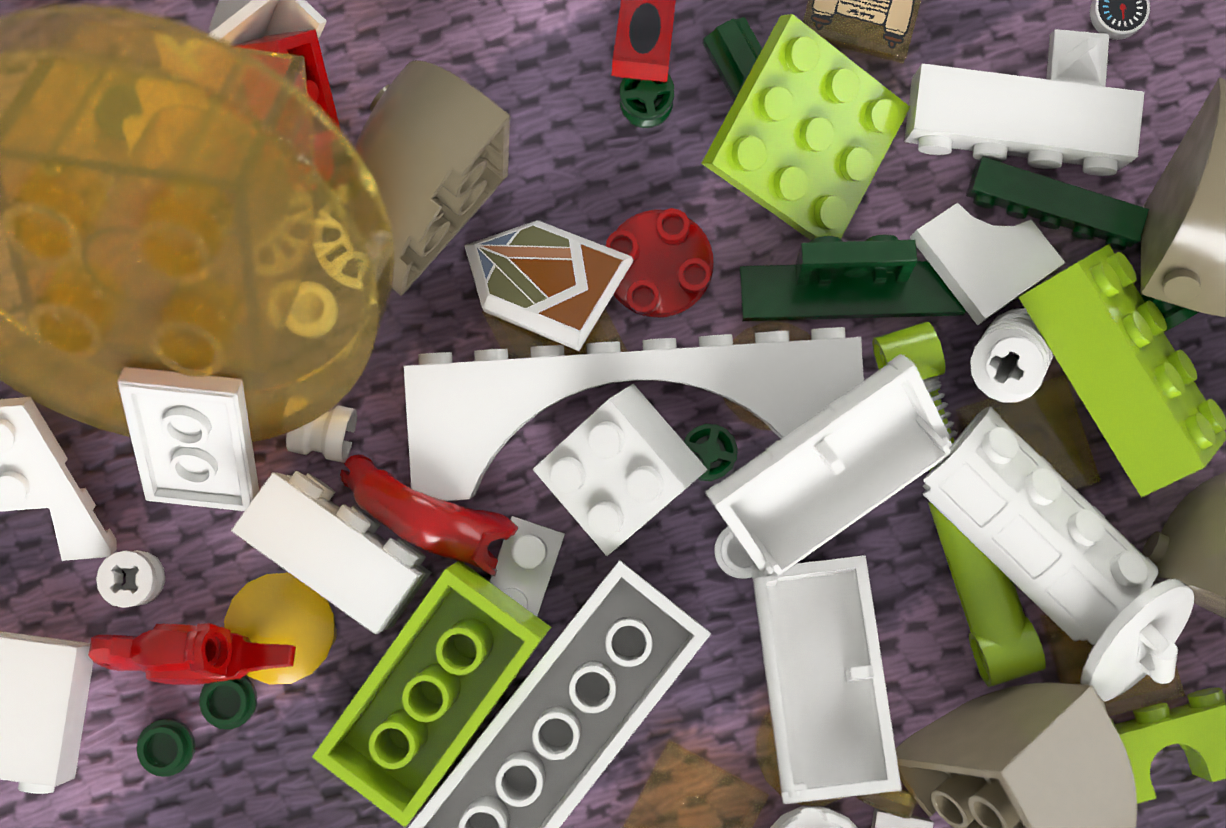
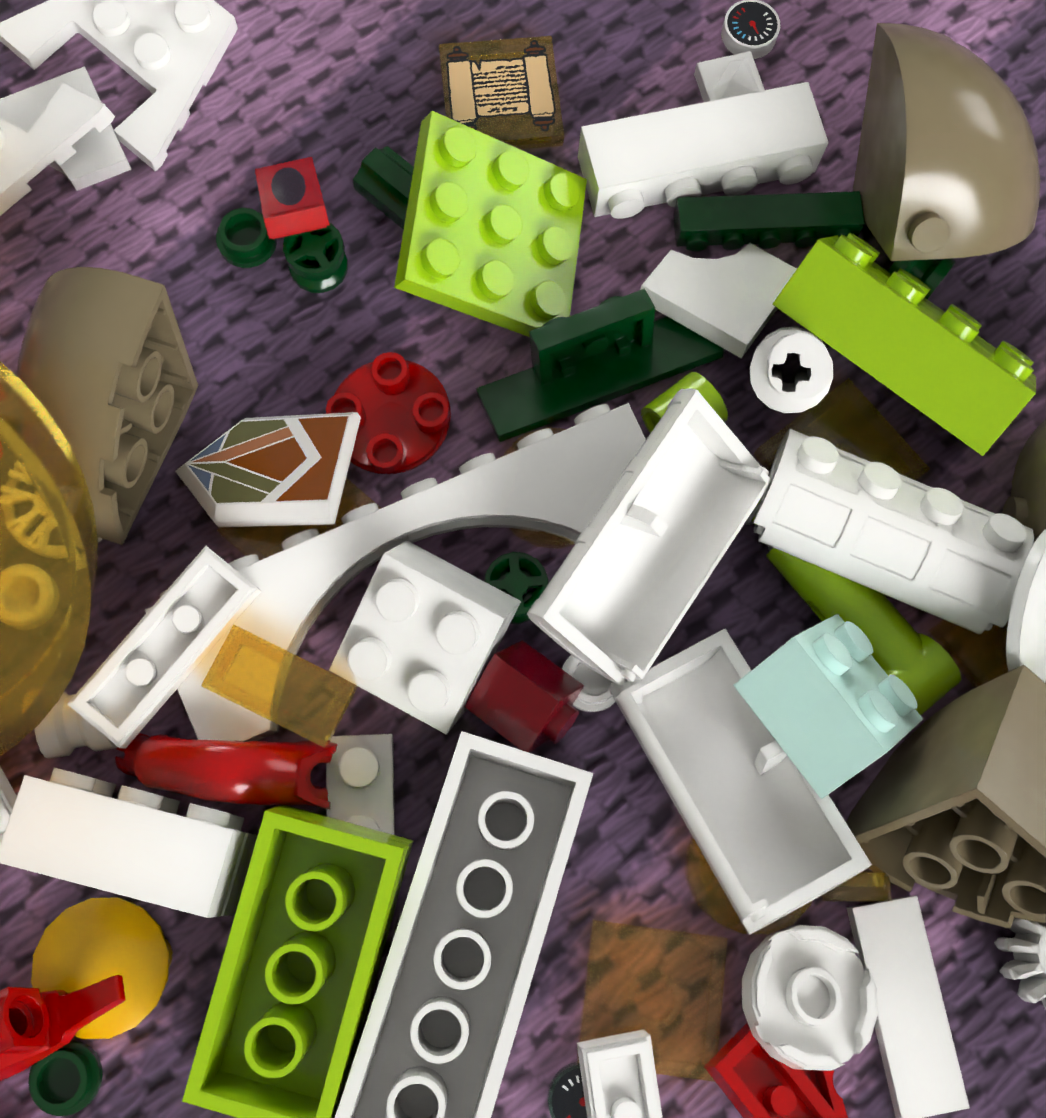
camera: 30 degrees left, 10 degrees down
(410, 404) = (164, 648): none -> white tile
(489, 469) = (279, 686): none -> clear yellow tile
(591, 56) = (244, 238): none -> dark green plate
(682, 548) = (525, 697): none -> dark red brick
(924, 652) = (829, 703): none -> light aqua brick

